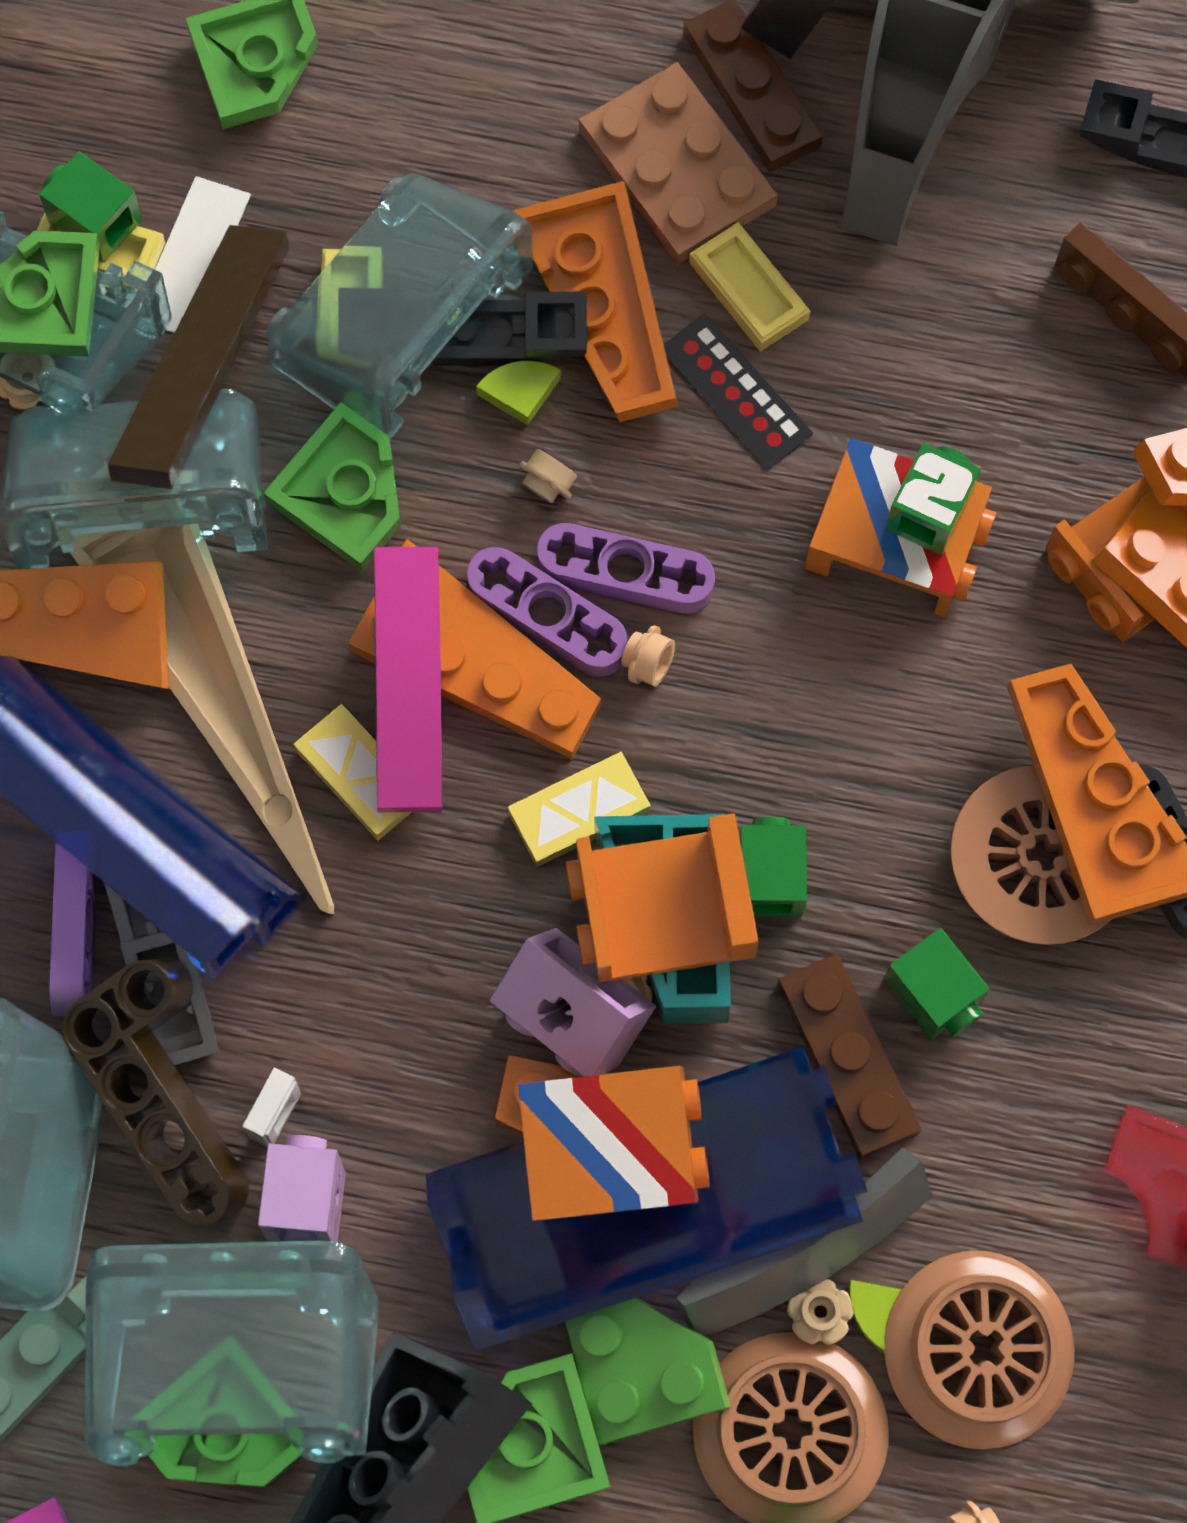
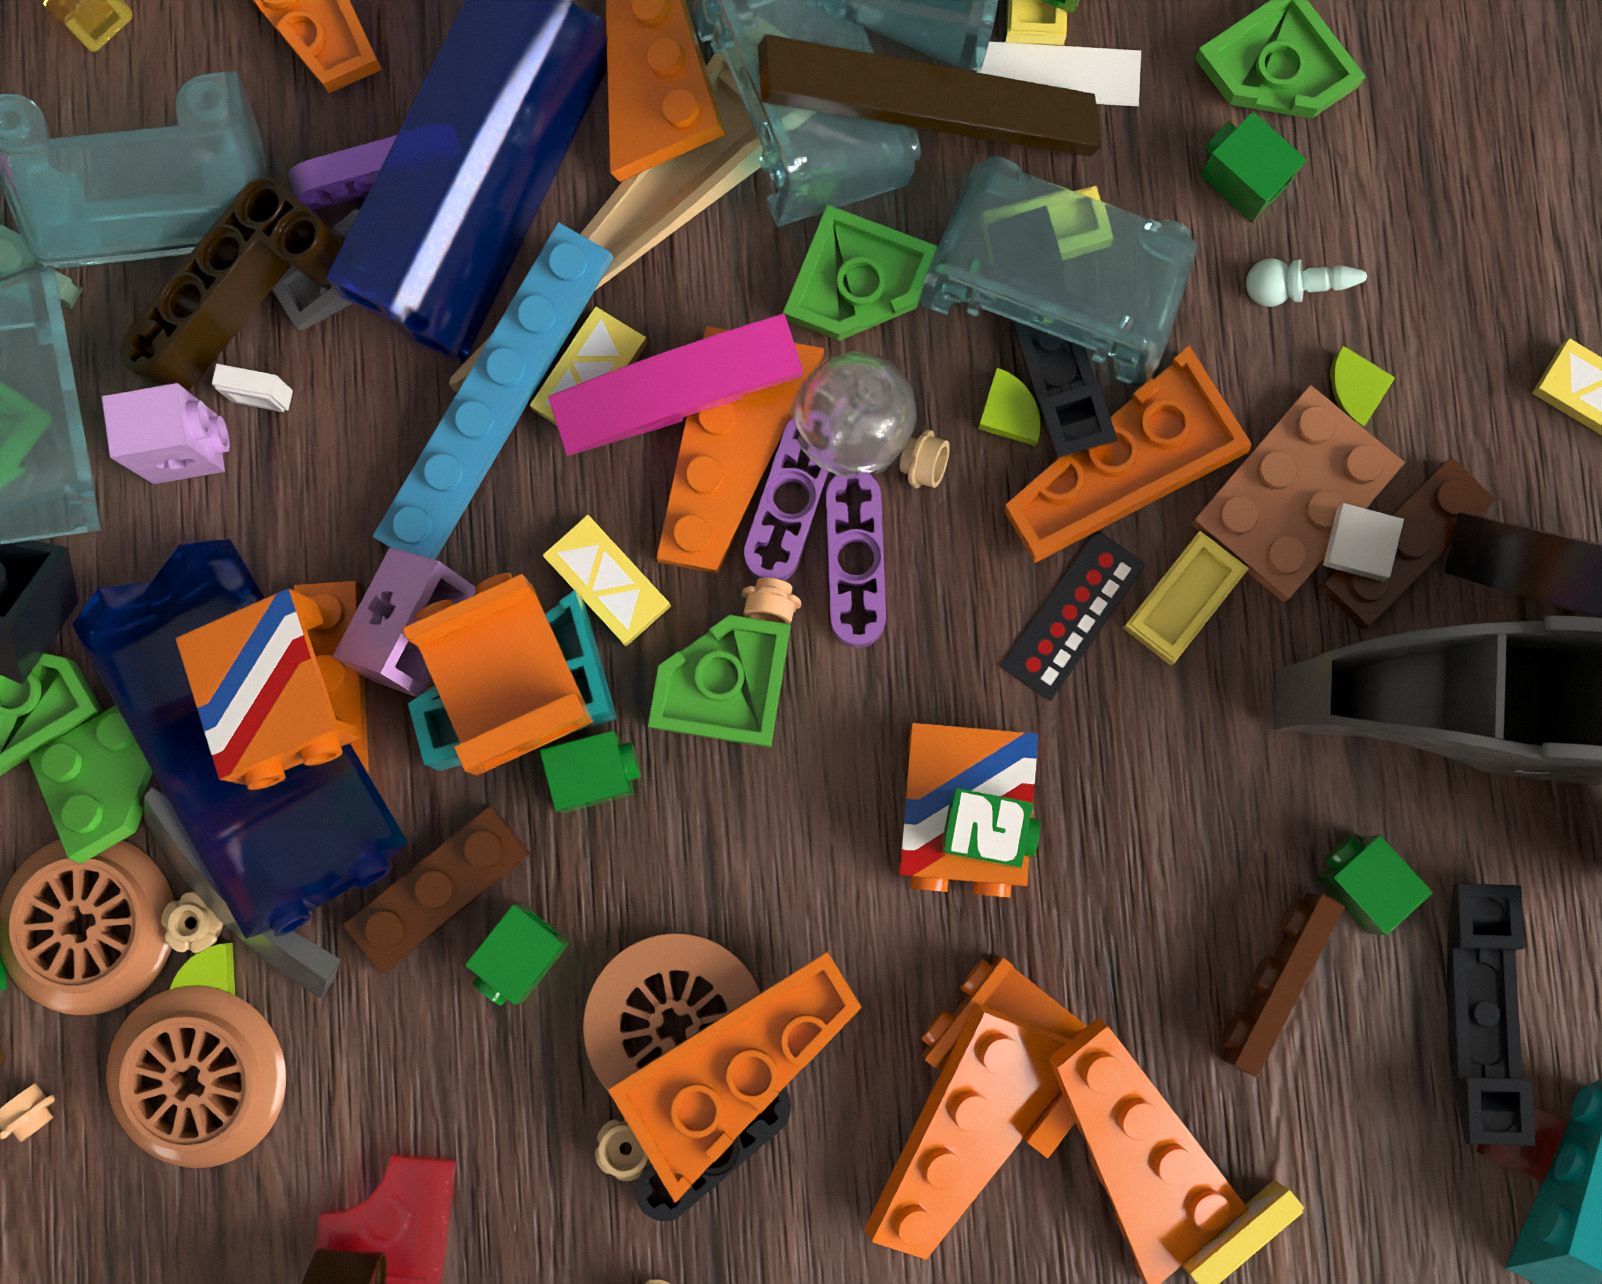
camera: 80 degrees right, 10 degrees up
(351, 107) = (1250, 165): none -> green brick
(356, 865) = (494, 394): none -> dark azure plate
(467, 125) = (1273, 281): none -> light aqua bar
(486, 520) = (854, 414): none -> clear cylinder
(589, 81) = (1358, 385): none -> lime tile
(717, 720) = (724, 683): none -> bright green plate
(746, 112) = (1363, 542): none -> white tile
(1062, 196) = (1373, 883): none -> green brick
(1167, 930) = (611, 1159): none -> tan plate

